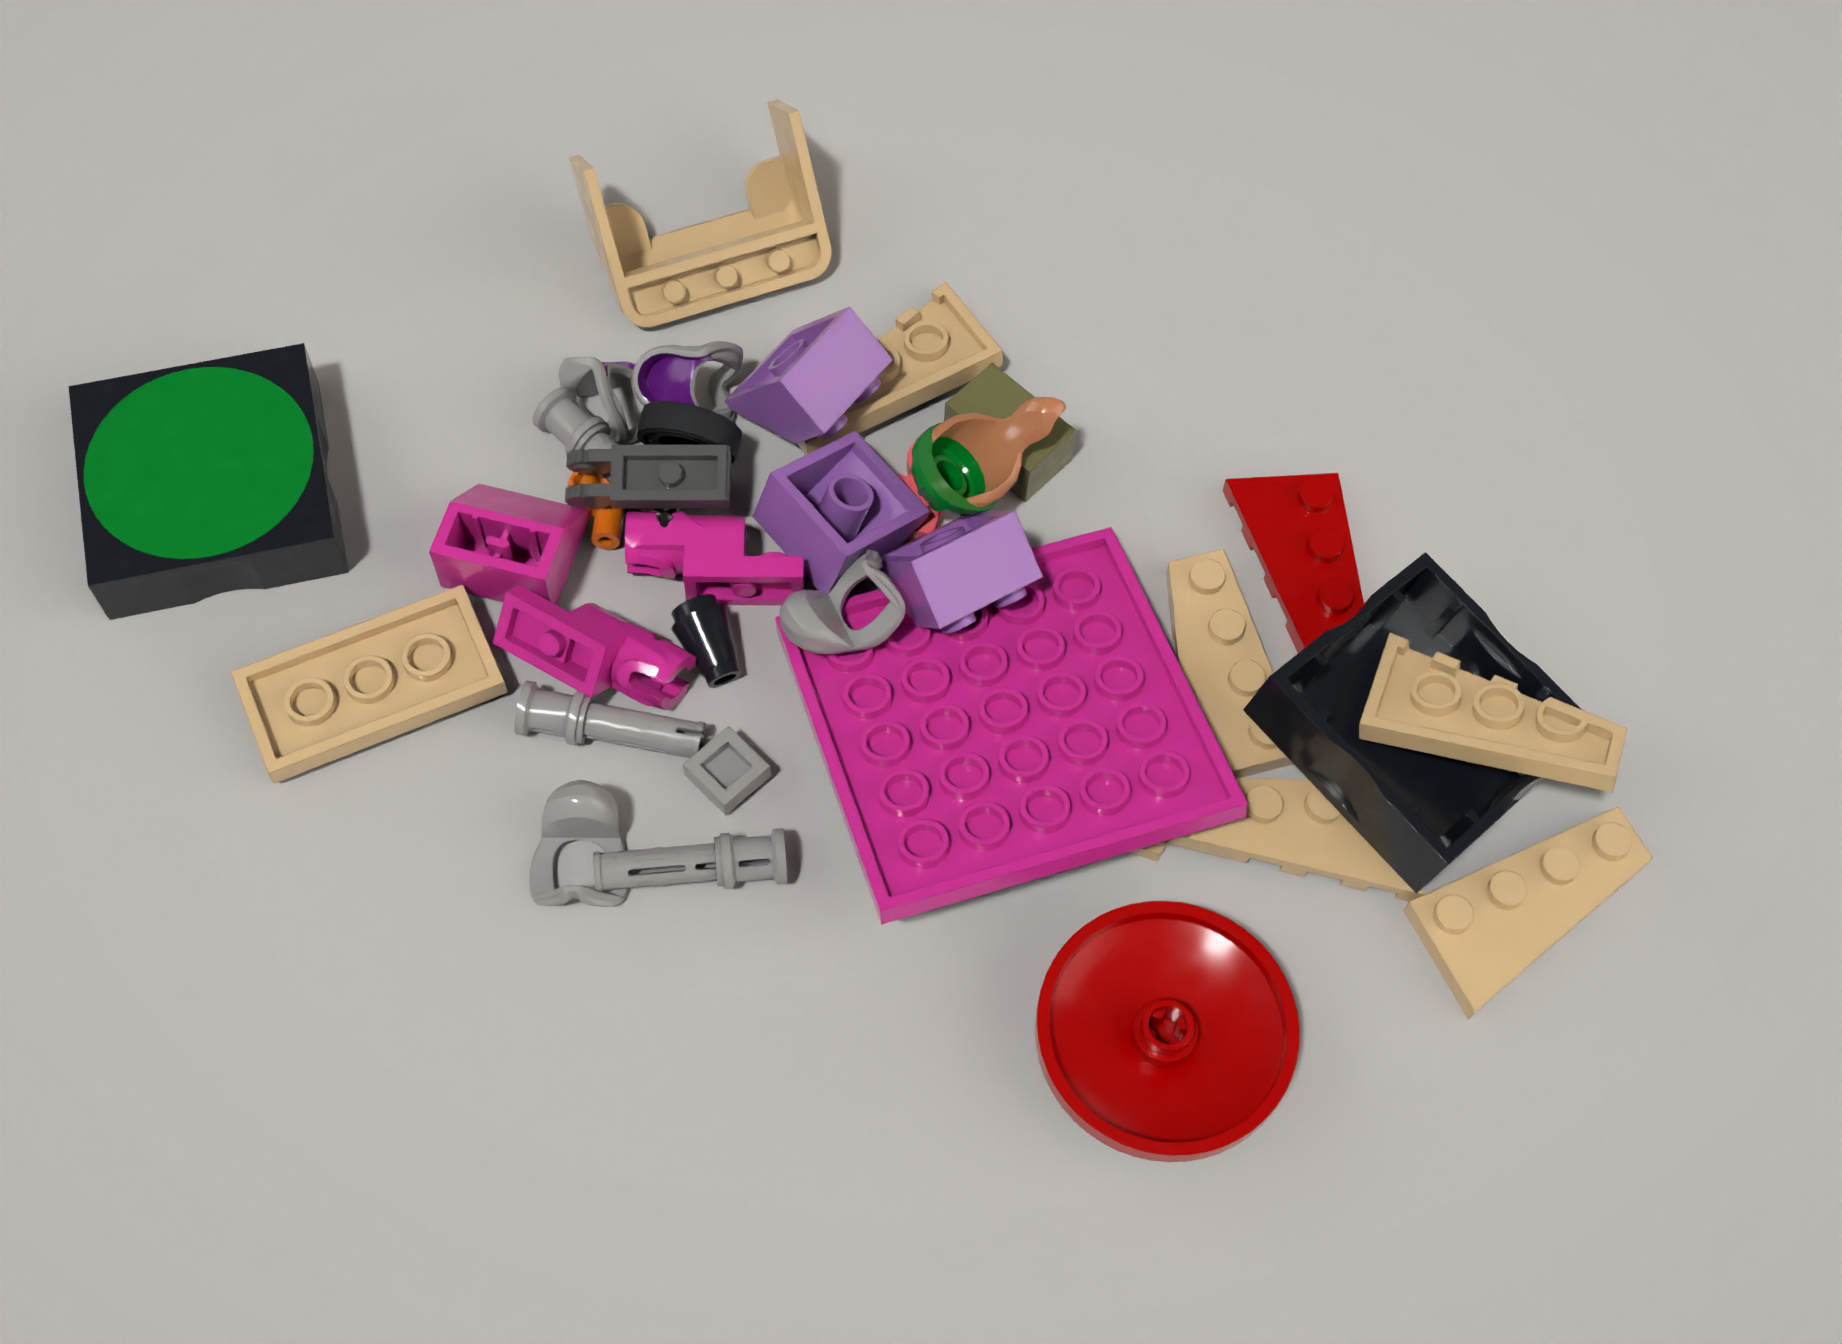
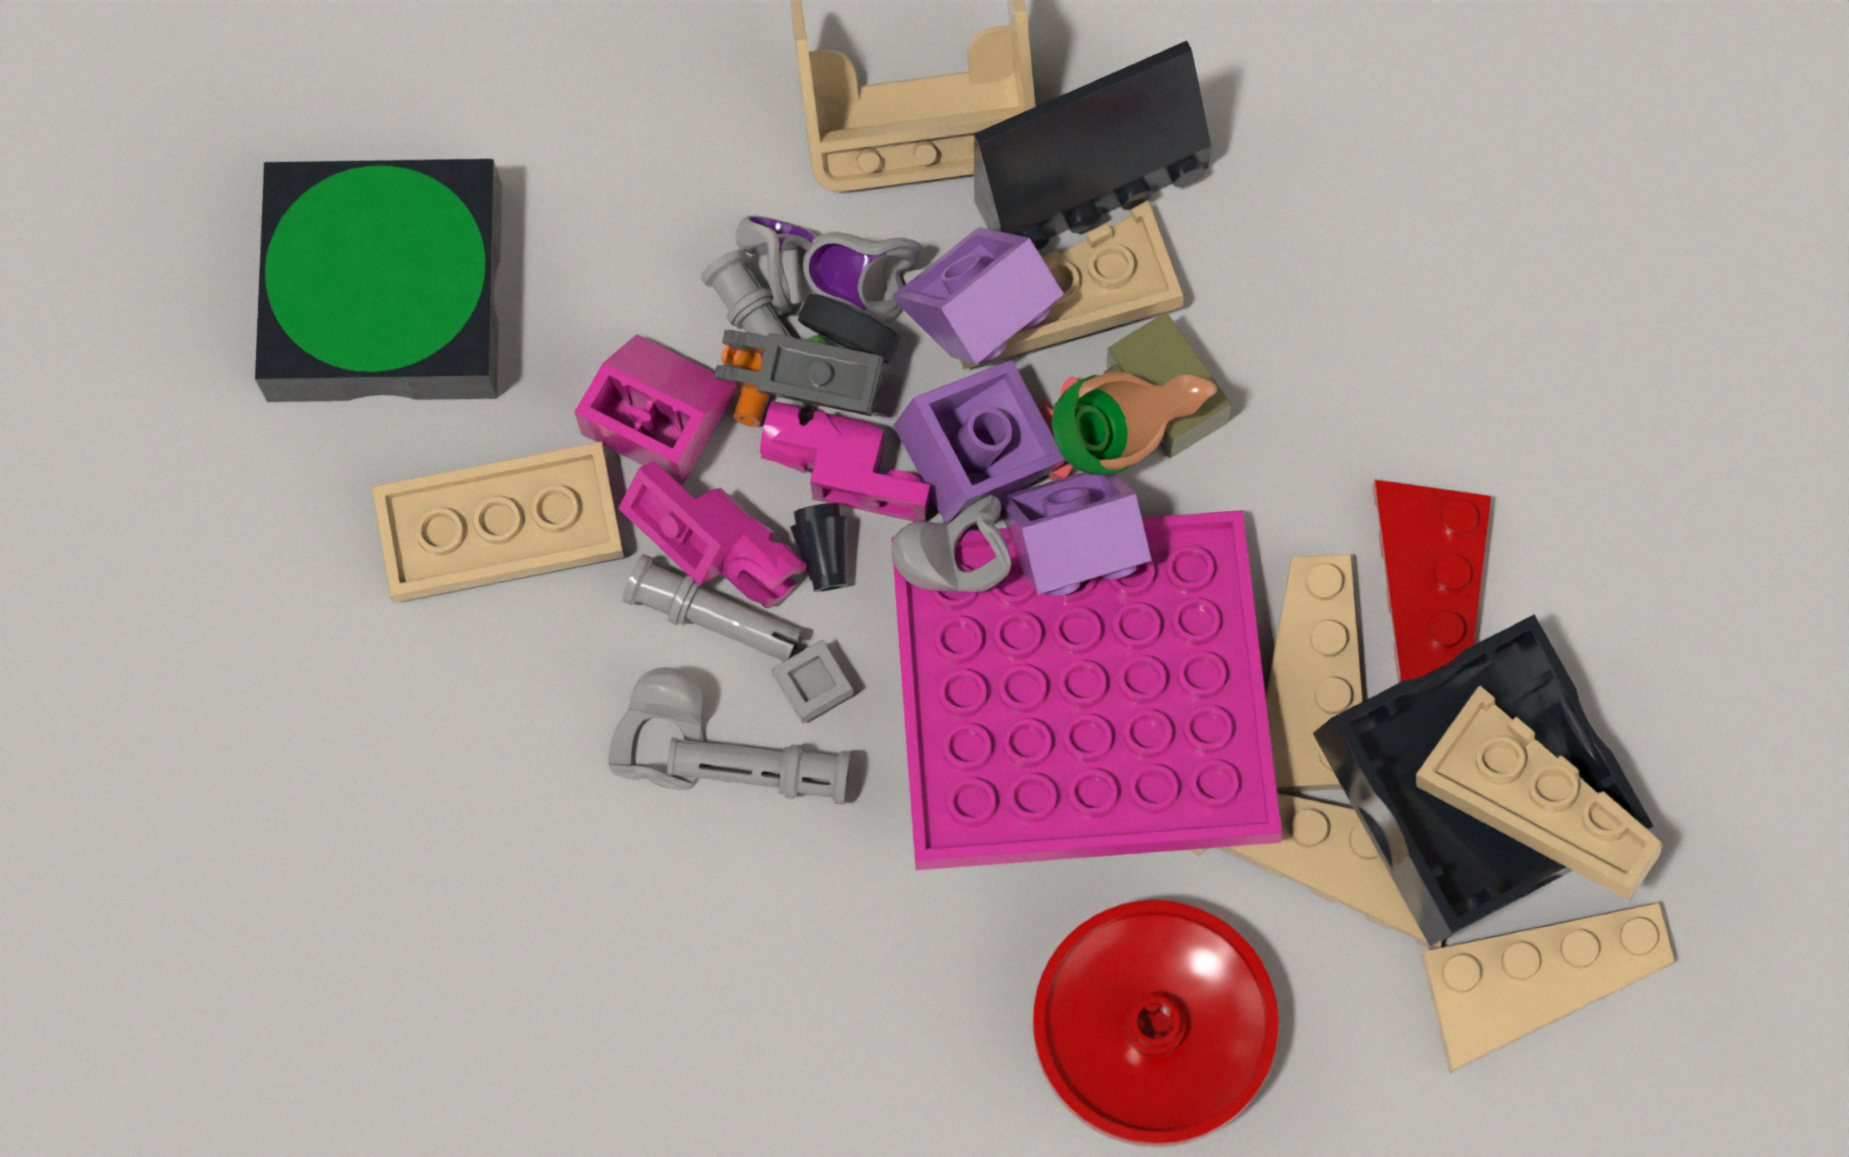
camera: 20 degrees right, 10 degrees up
(887, 227) = (1094, 149): none -> black slope

